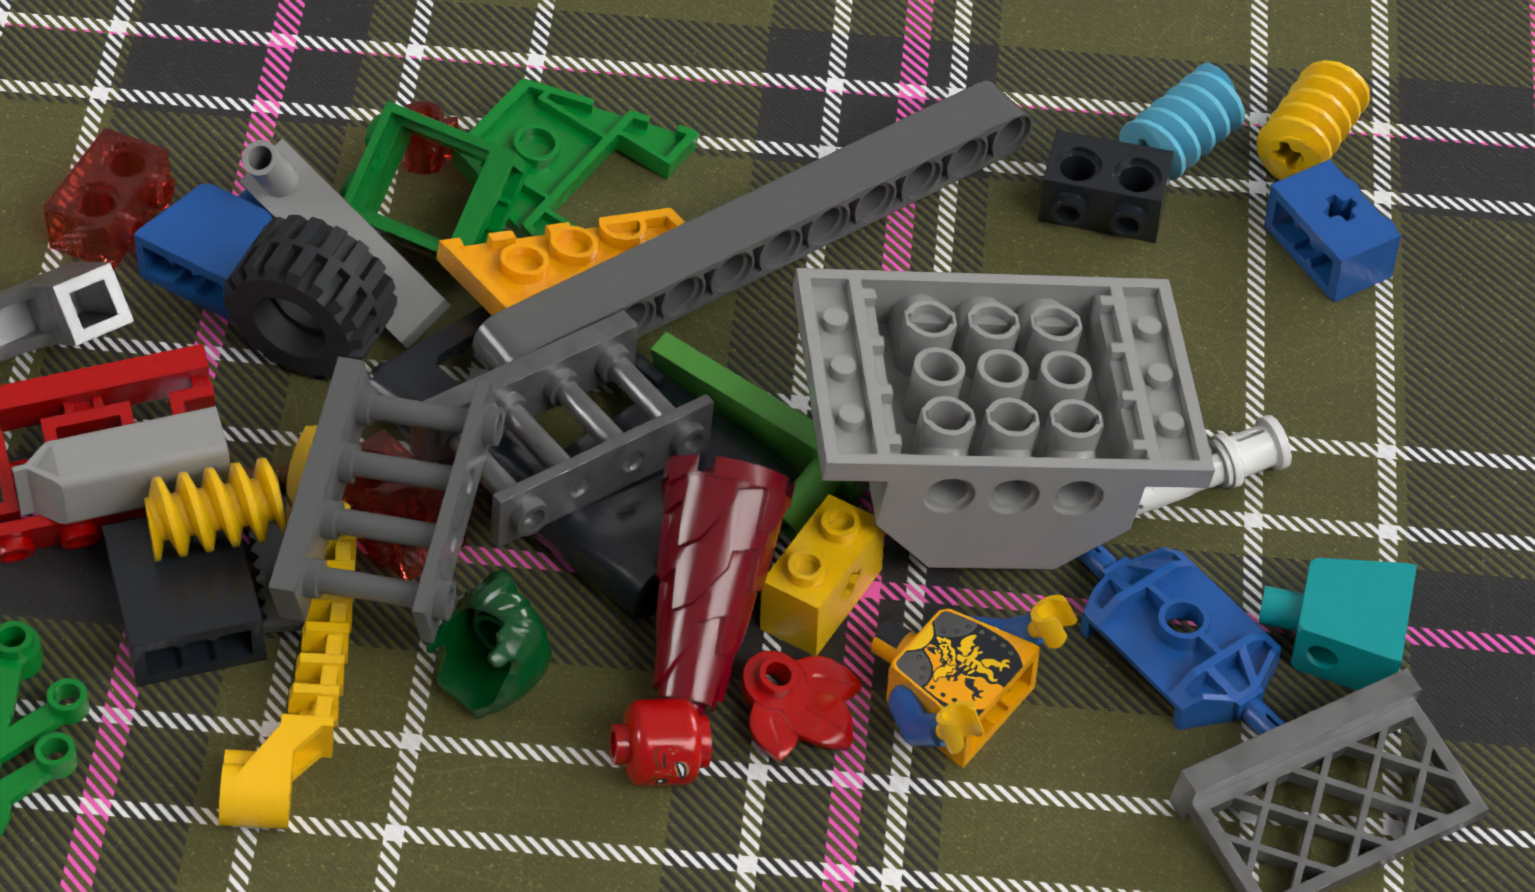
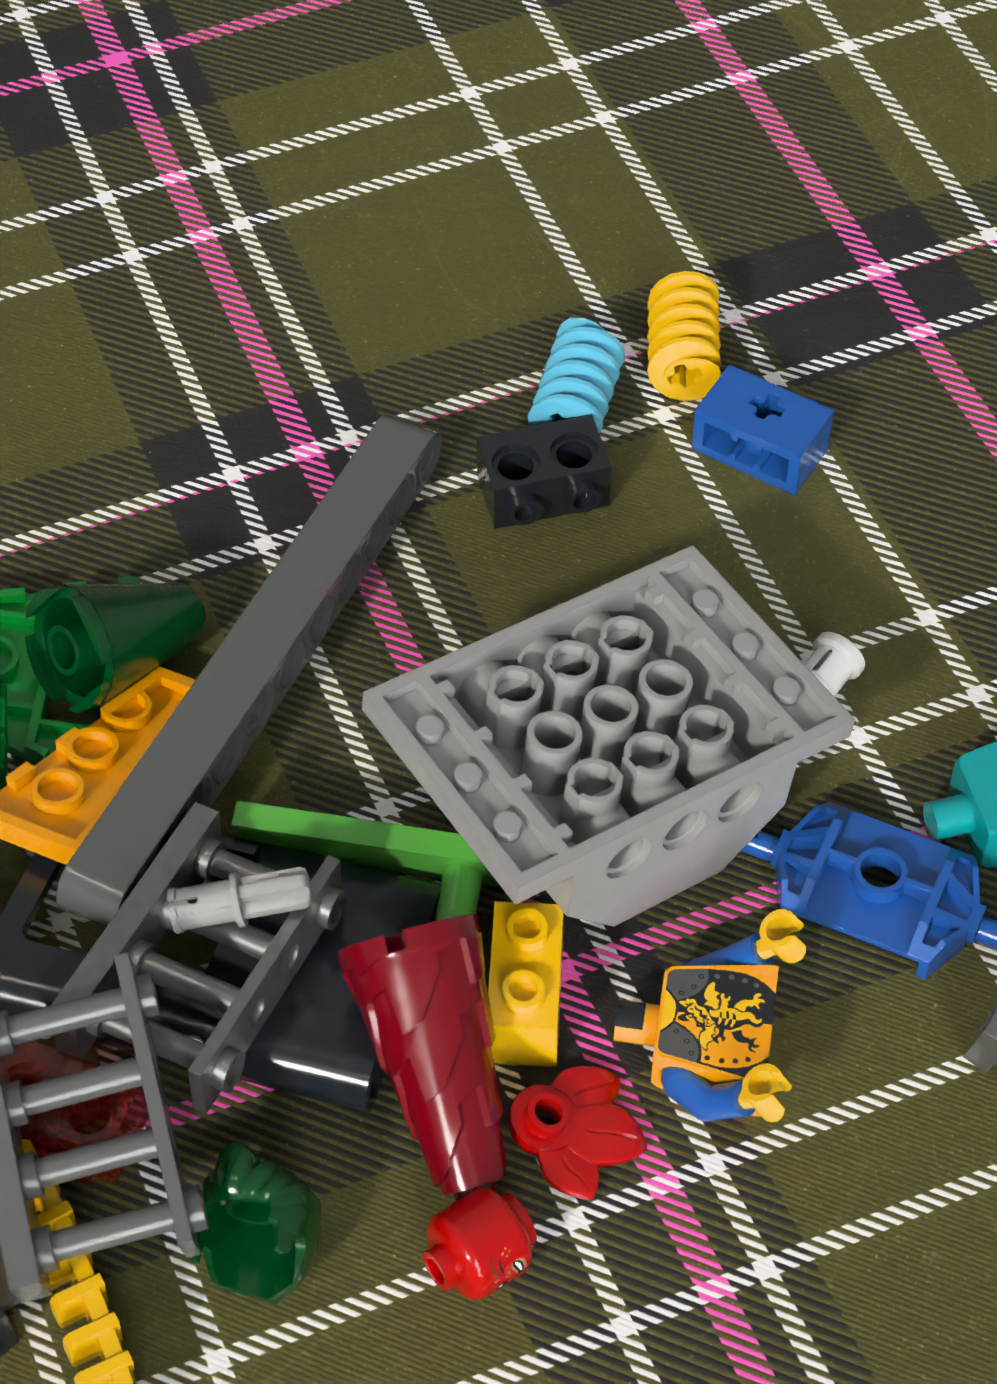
camera: 25 degrees left, 5 degrees up
(610, 391) = (239, 899): none -> light grey axle
(640, 162) = (108, 636): none -> dark green cone

